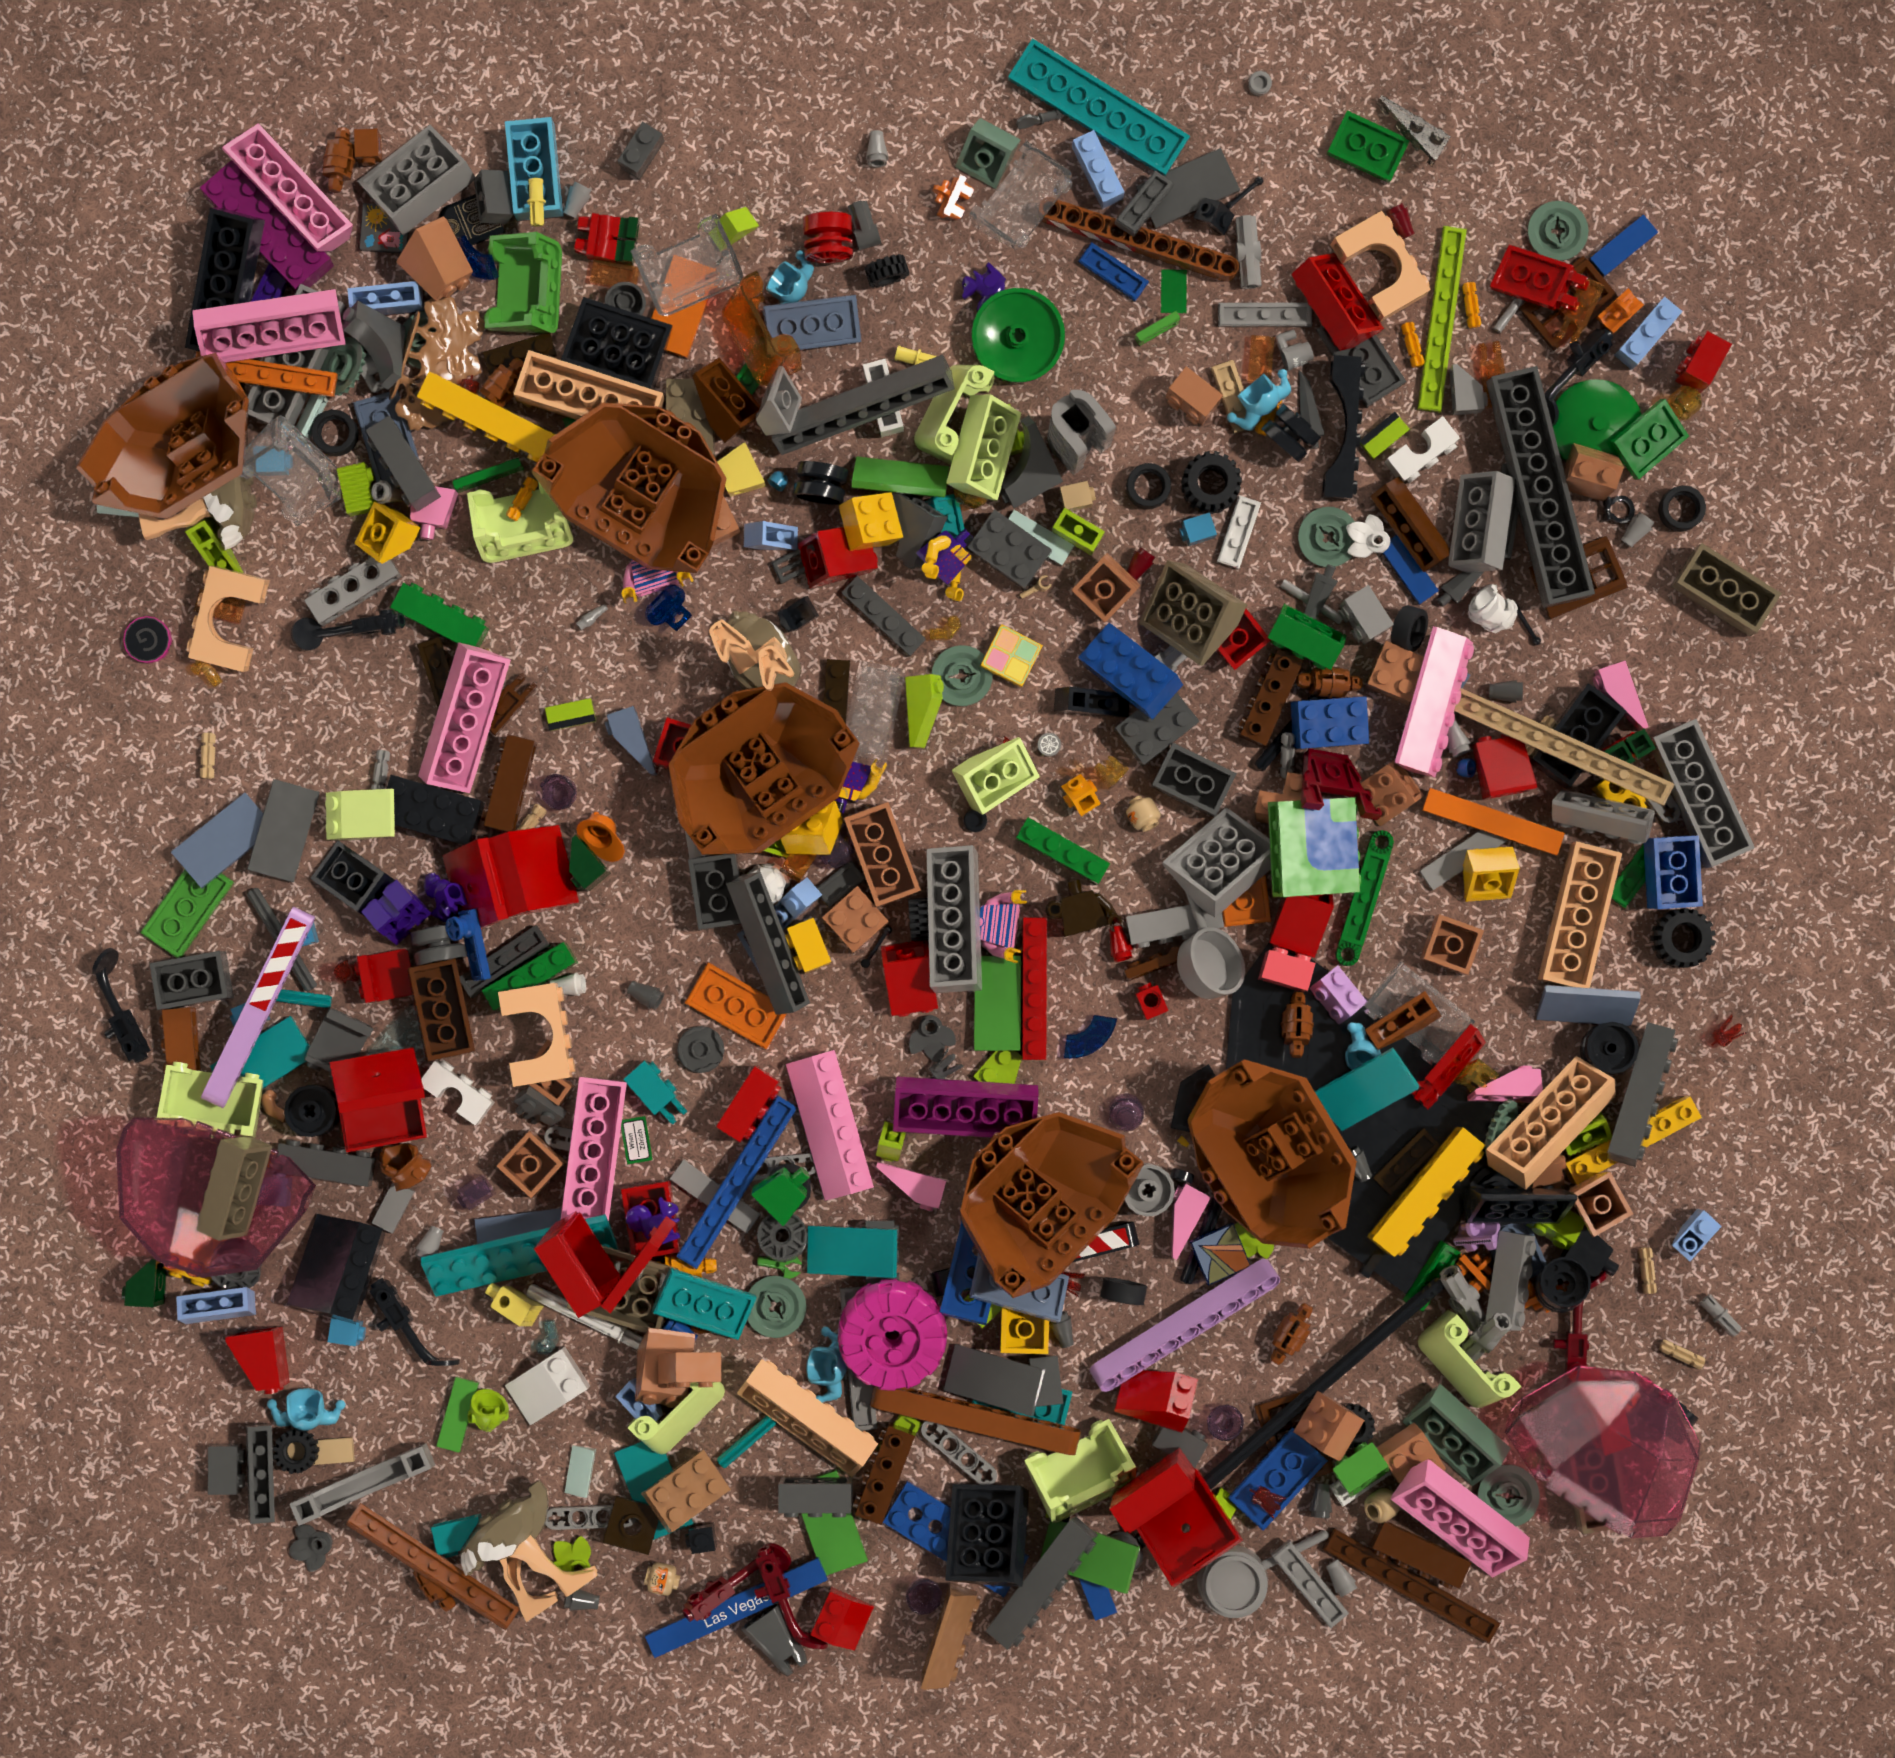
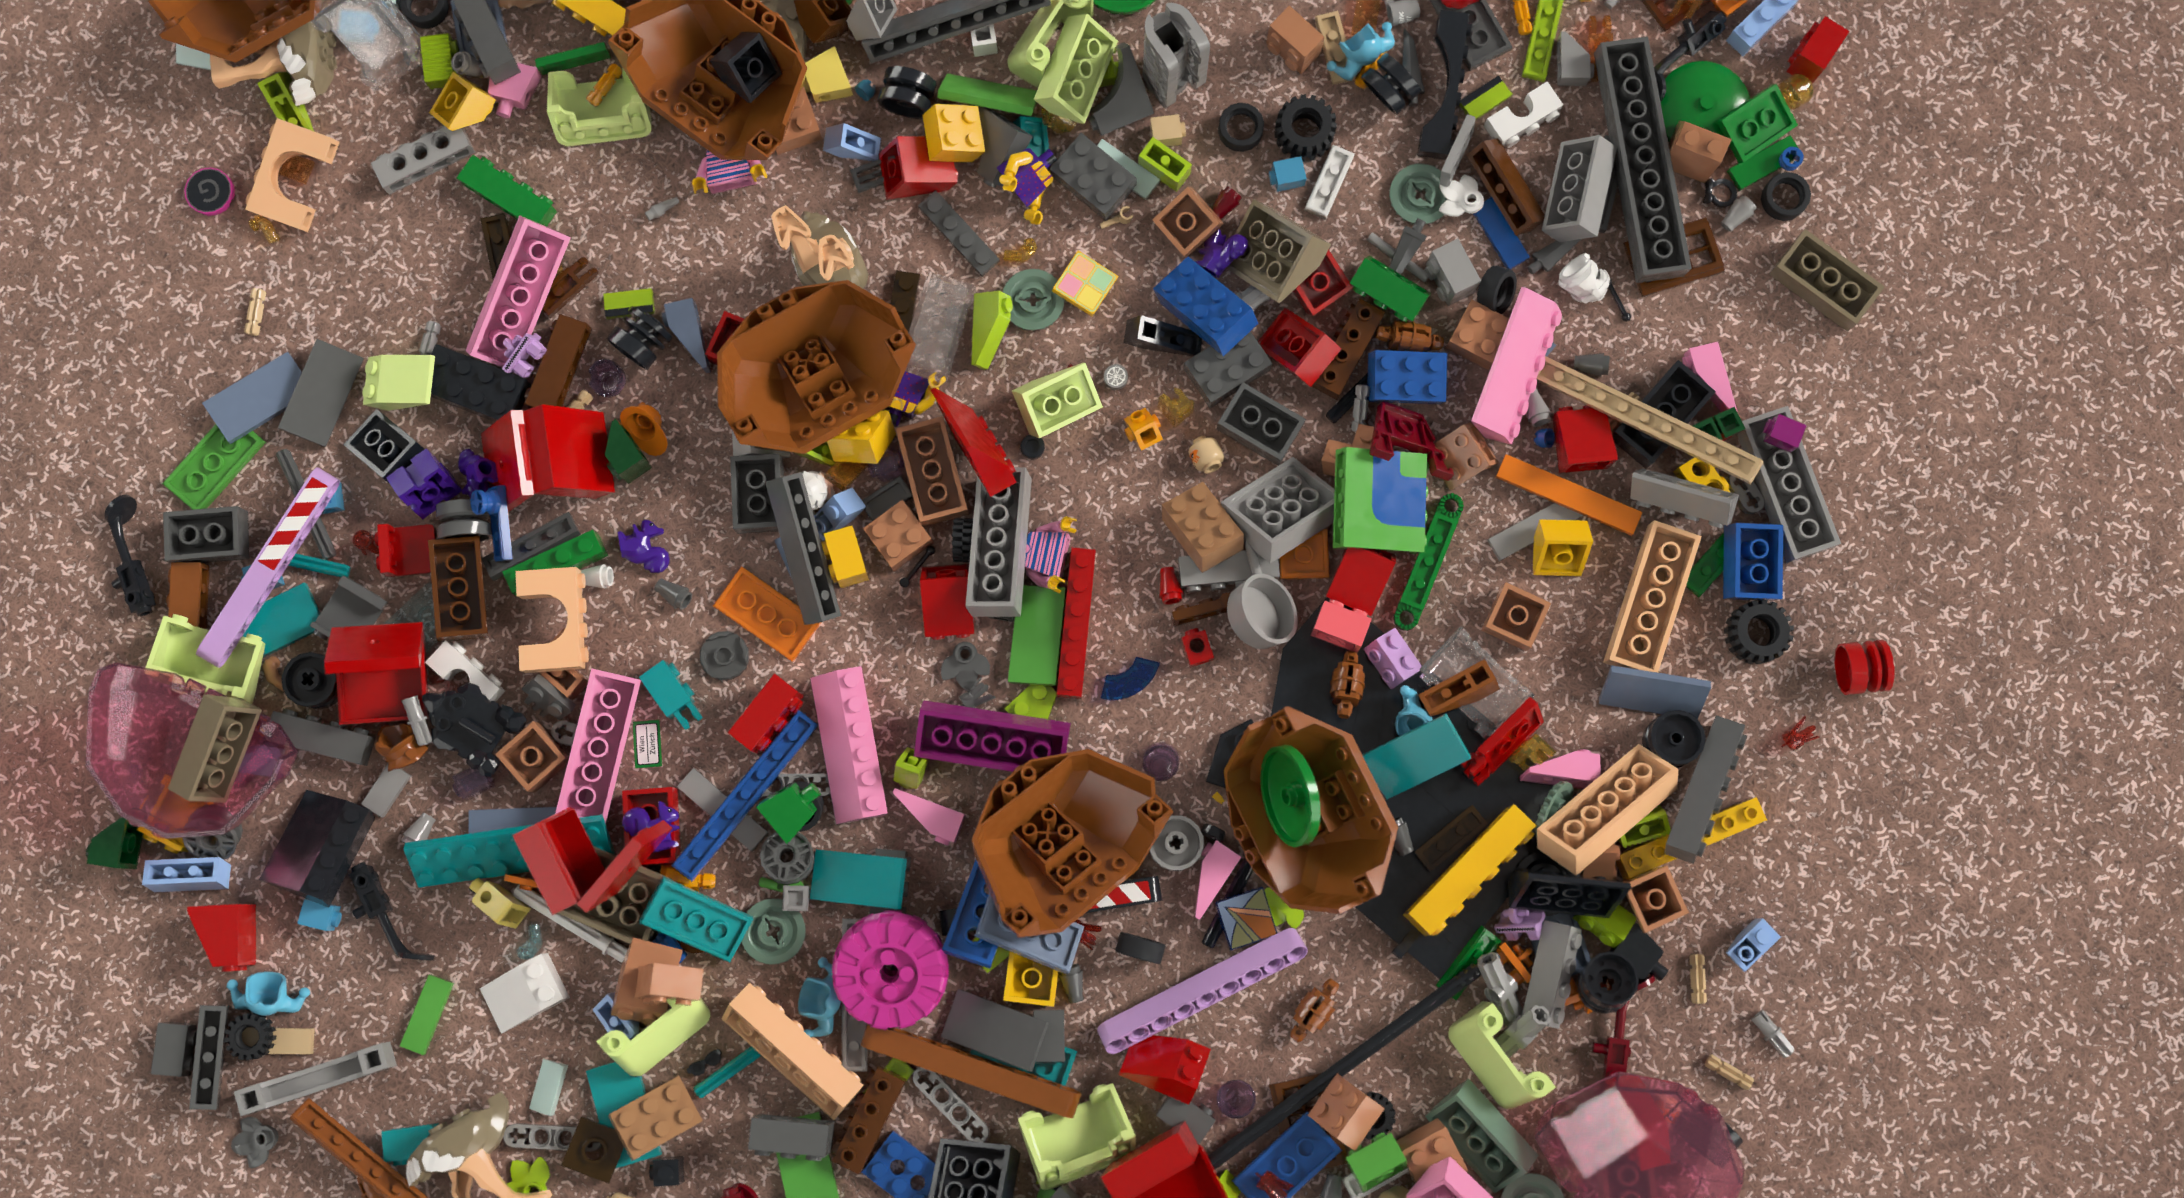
camera: 10 degrees right, 5 degrees down
(308, 634) = (372, 199): black piece -> none
(419, 1141) = (417, 720): none -> light grey axle
(470, 1140) = (471, 725): none -> black shield
(472, 786) = (518, 352): none -> lavender hips
(488, 1409) = (457, 1012): lime helmet -> none
(538, 1284) = (525, 883): none -> orange piece
(586, 750) = (639, 337): none -> black wheel
(607, 954) = (638, 547): none -> dark purple animal
(665, 477) = (746, 65): none -> black slope
(667, 606) = (738, 204): clear blue bracket -> none
(719, 1439) = (699, 1067): none -> black piece
(794, 1274) = (795, 898): none -> light grey tile
(797, 615) = (871, 223): black bracket -> none
(924, 827) = (977, 444): none -> red slope
(1062, 851) = (1118, 484): green brick -> none
(1082, 910) = (1134, 547): dark brown torso -> none
(1140, 619) = (1220, 253): none -> dark purple animal
(1146, 886) = (1202, 527): none -> medium nougat brick
(1222, 702) = (1298, 346): none -> red slope
(1253, 1139) = (1290, 795): none -> green dish
(1361, 492) = (1457, 150): none -> light grey tile
(1660, 476) = (1760, 164): none -> green tile
(1679, 475) = (1797, 156): none -> blue bush
(1693, 747) = (1784, 432): none -> magenta brick
(1784, 963) = (1864, 667): none -> red wheel

